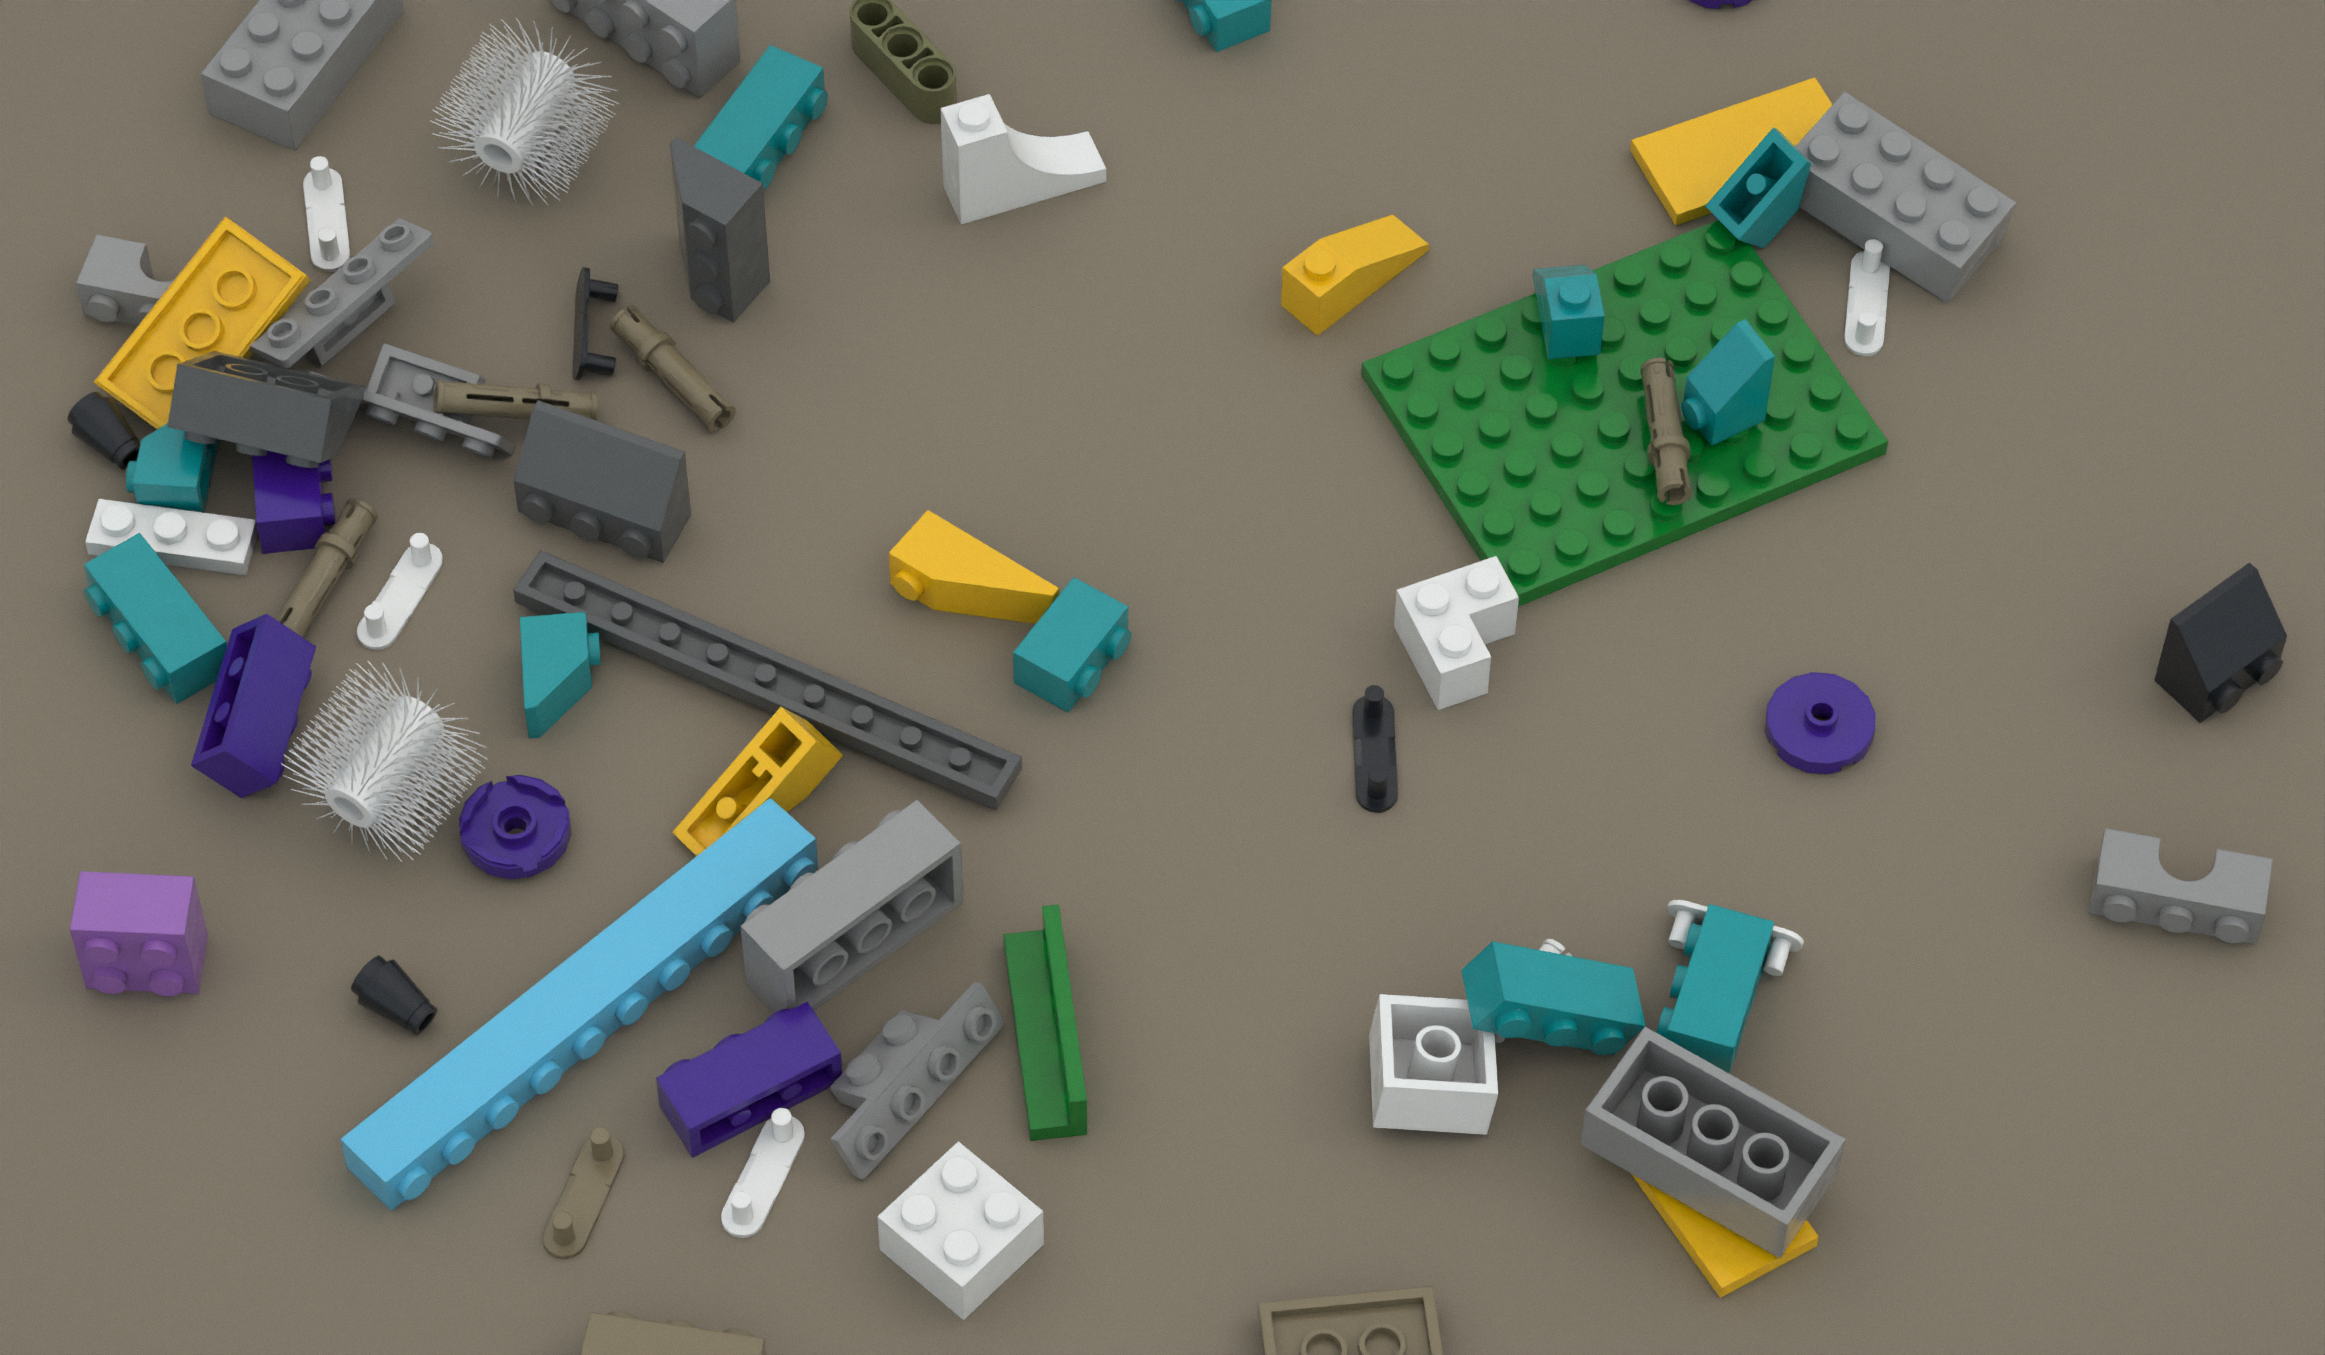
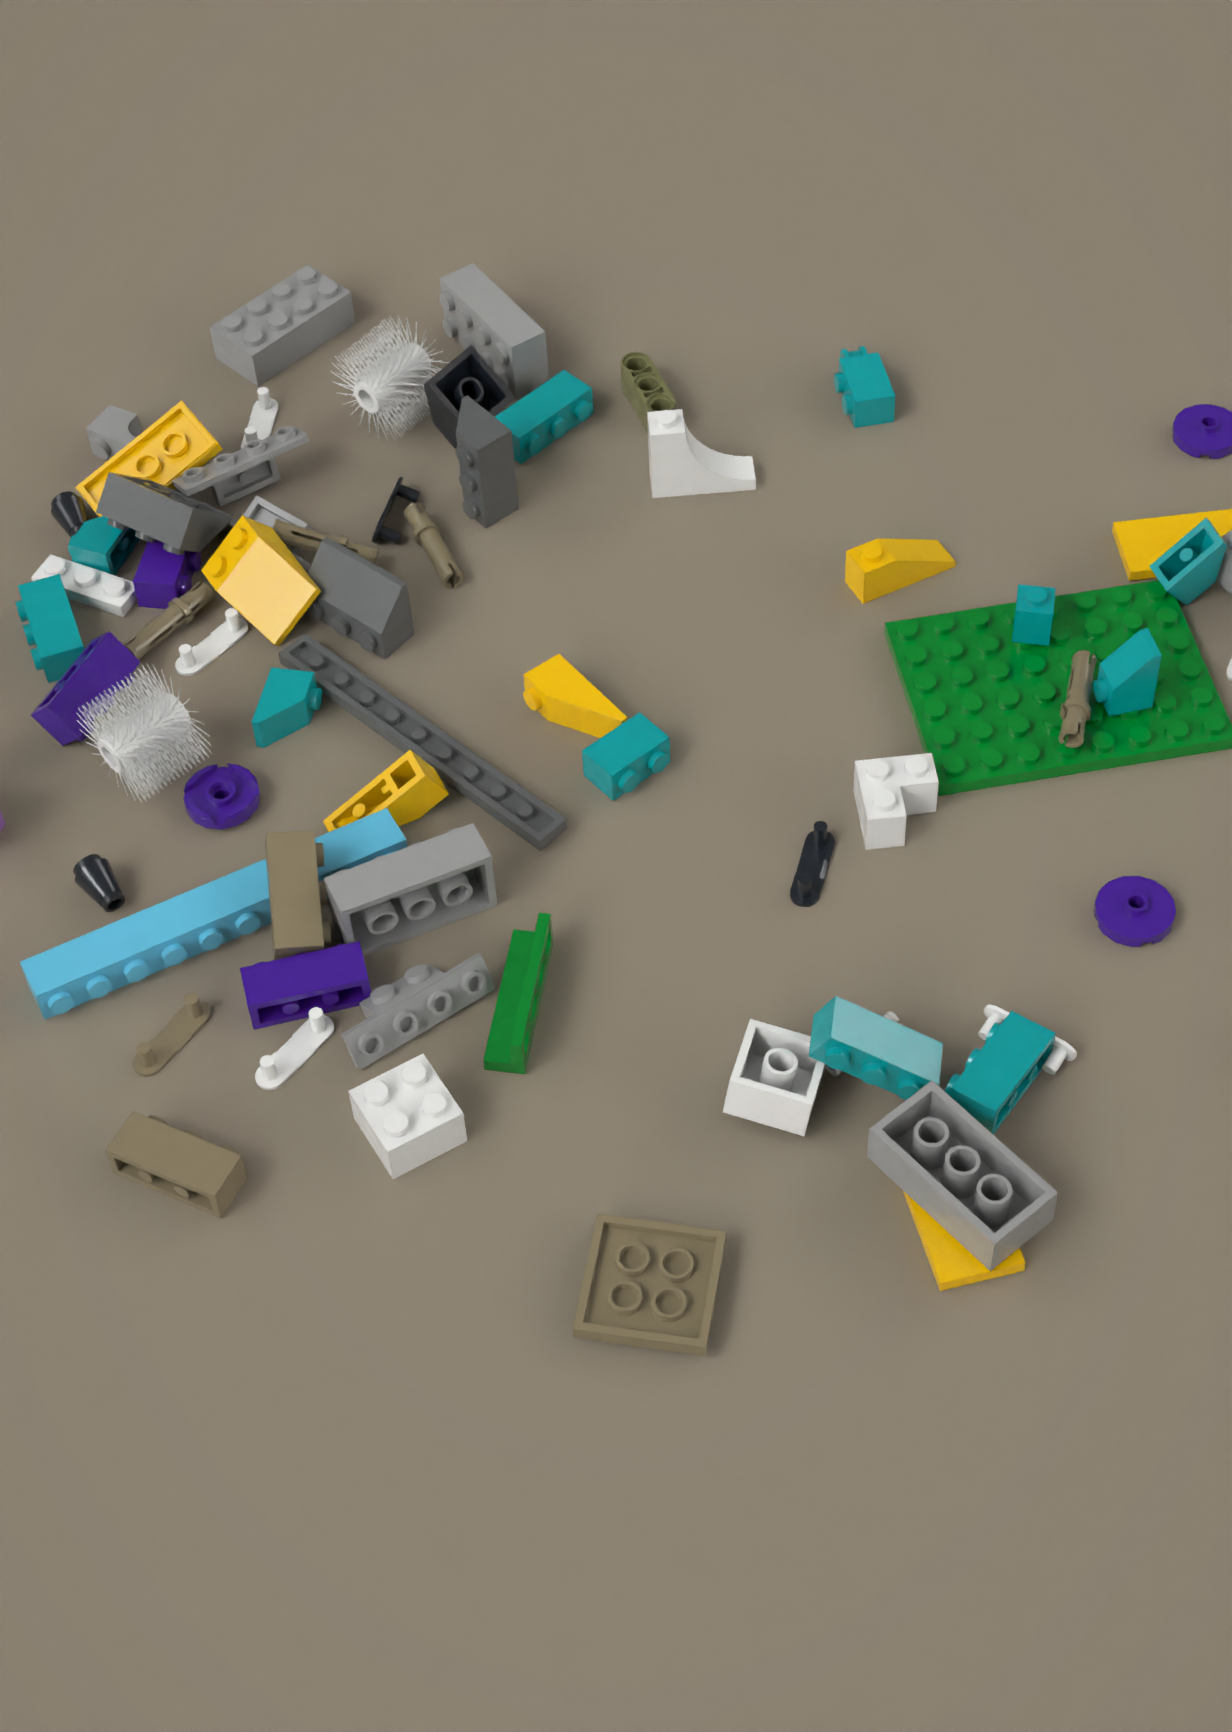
camera: 20 degrees right, 5 degrees down
(450, 481) = (261, 579): none -> yellow slope
(639, 120) = (462, 377): none -> black slope
(697, 955) = (296, 893): none -> dark tan brick

